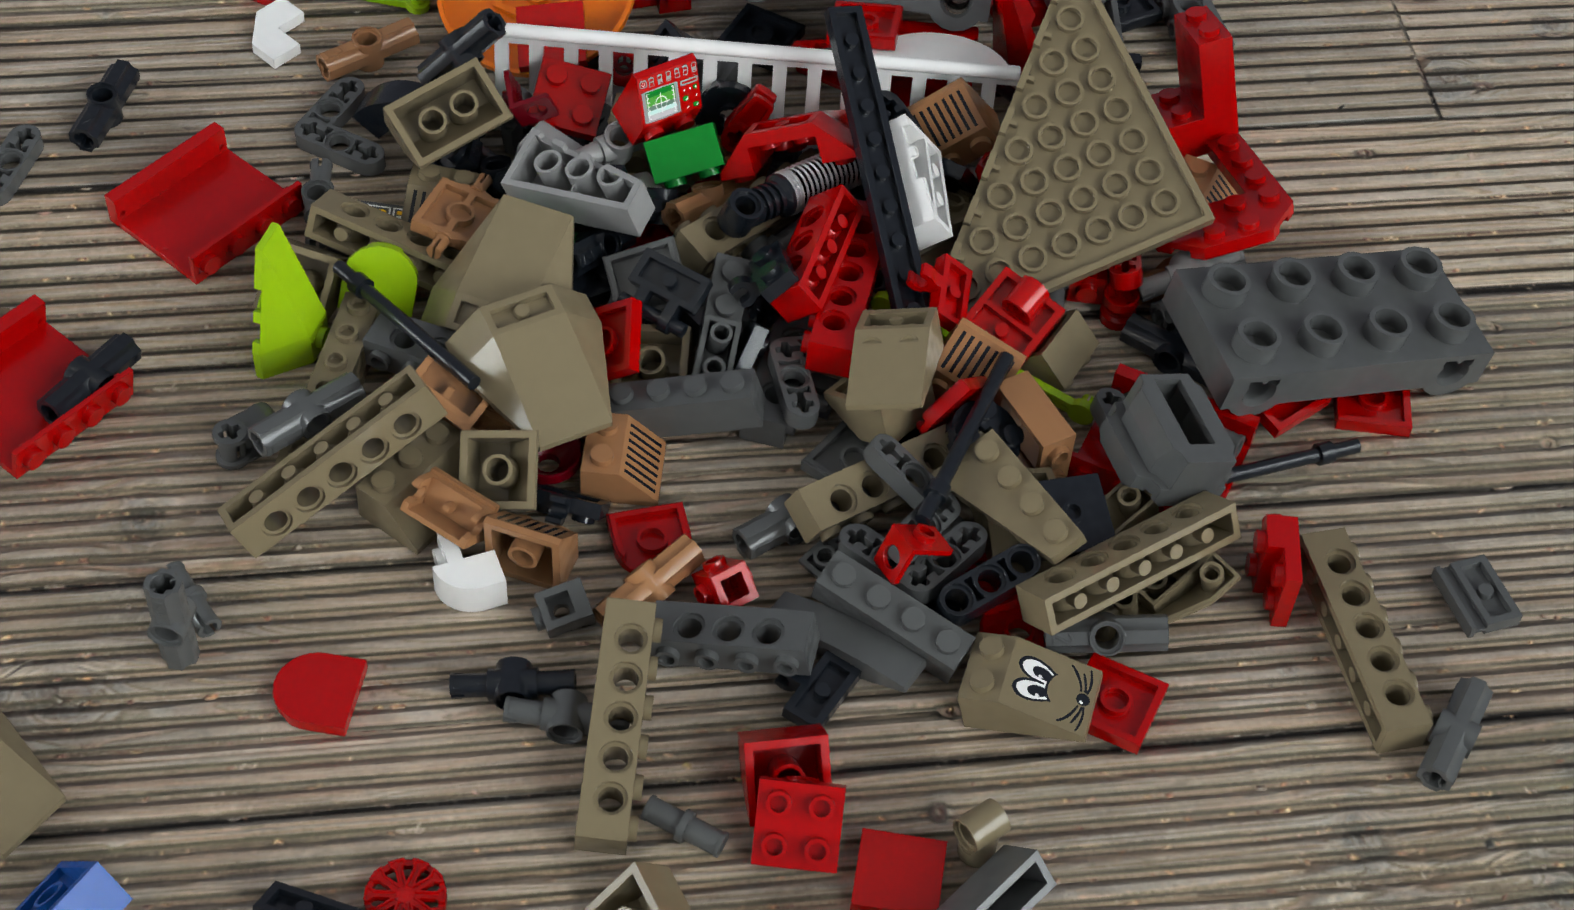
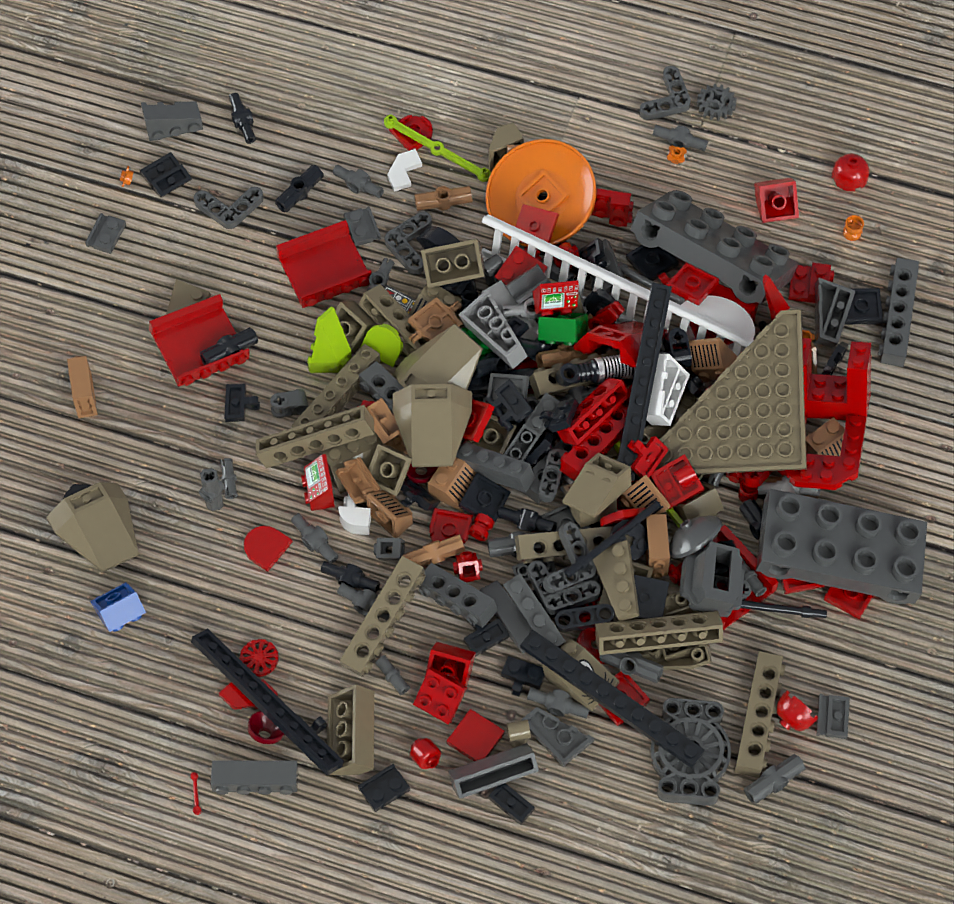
camera: 30 degrees right, 10 degrees up
(147, 467) = (237, 402): none -> black plate
(205, 67) = (358, 181): none -> dark grey pin
(248, 130) = (362, 226): none -> dark grey plate
(306, 414) = (313, 407): dark grey piece -> none
(364, 288) = (370, 346): black bar -> none
(375, 544) = (318, 484): none -> red slope
(409, 642) = (314, 538): none -> dark grey pin
(463, 45) = (473, 229): black piece -> none
(513, 98) = (490, 268): dark red bracket -> none
(590, 108) = (525, 284): none -> dark grey panel
(689, 468) = (484, 497): none -> black plate
(710, 514) = (481, 528): none -> red wheel
(783, 473) = (527, 520): none -> black pin
(910, 541) = (556, 584): red bracket -> none
(921, 731) = (523, 674): none -> black plate
(1014, 754) = (558, 702): none -> dark grey pin
(1049, 816) = (558, 738): none -> dark grey wing
(1096, 385) = (694, 535): none -> dark grey dish
(1117, 701) = (612, 698): none -> black plate
(1276, 566) = (737, 658): red plate -> none
(1286, 779) = (706, 733): none -> dark grey piece
(1420, 609) = (794, 713): none -> red cylinder

